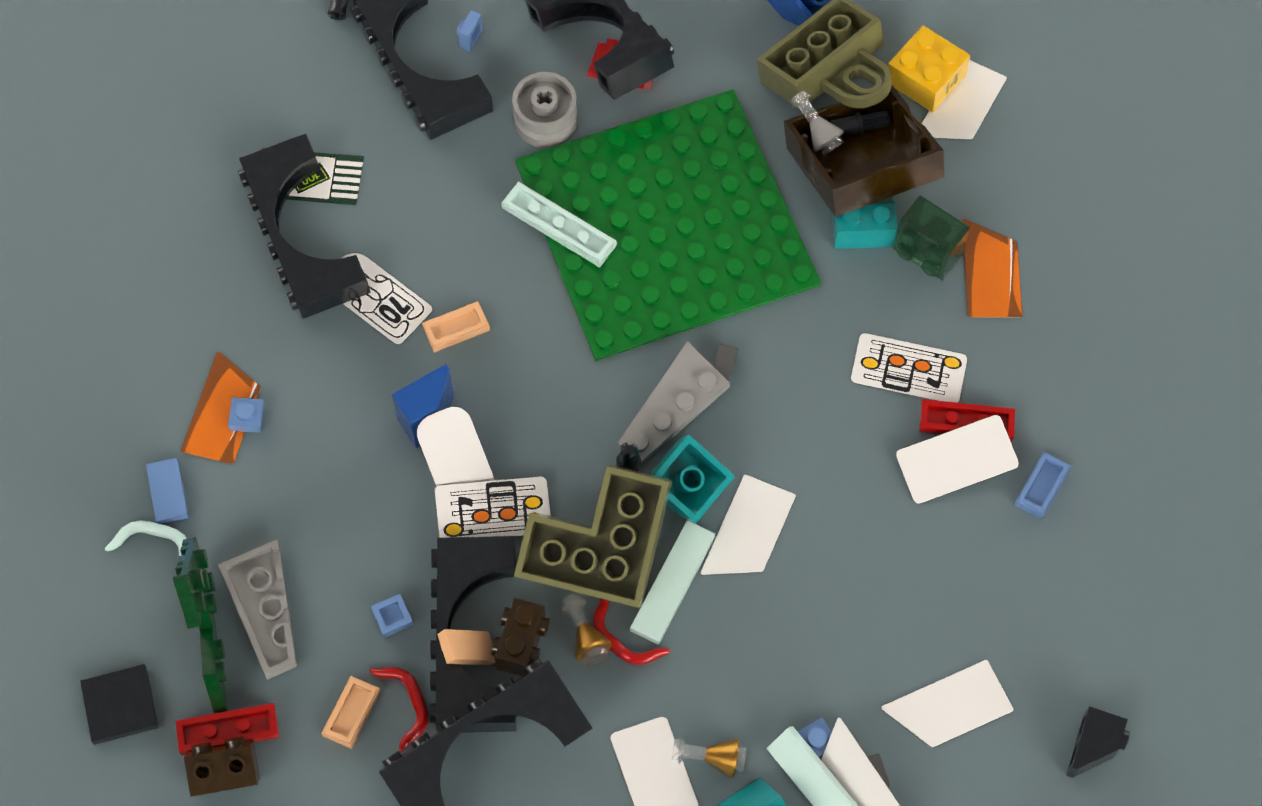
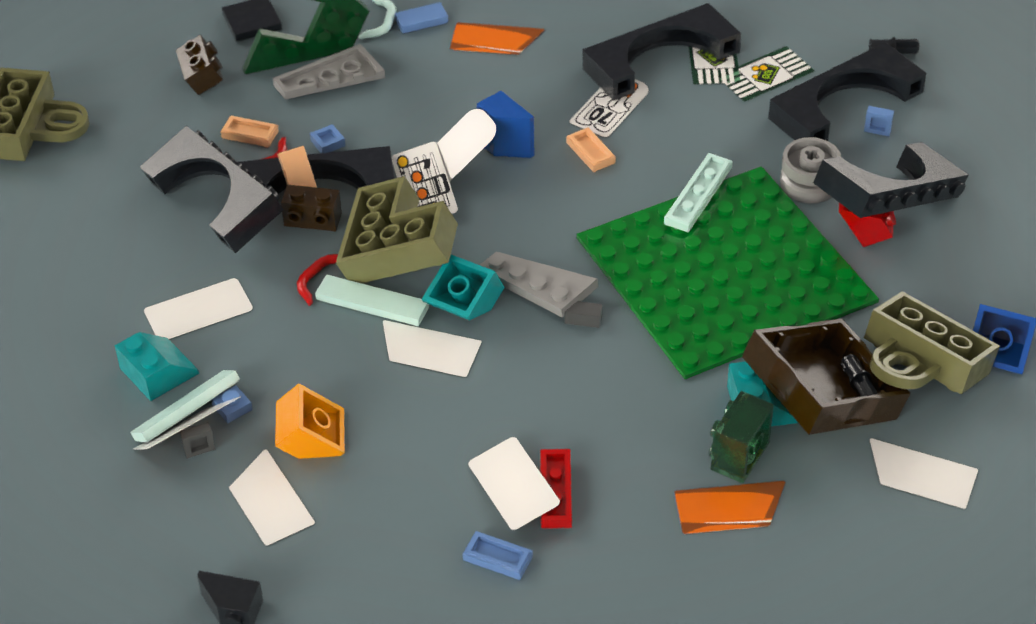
camera: 85 degrees right, 20 degrees down
(246, 414) = (490, 46): medium blue plate -> none
(252, 723) = (234, 71): red plate -> none
(352, 125) = (769, 73): none -> sticker
(590, 644) = (308, 249): piece -> none
(629, 457) = (472, 248): black axle -> none
(725, 756) = (213, 343): piece -> none
(823, 133) = (834, 348): piece -> none
(865, 656) = (309, 425): none -> light orange slope
(909, 368) = (608, 450): sticker -> none
(928, 68) = (943, 431): yellow brick -> none

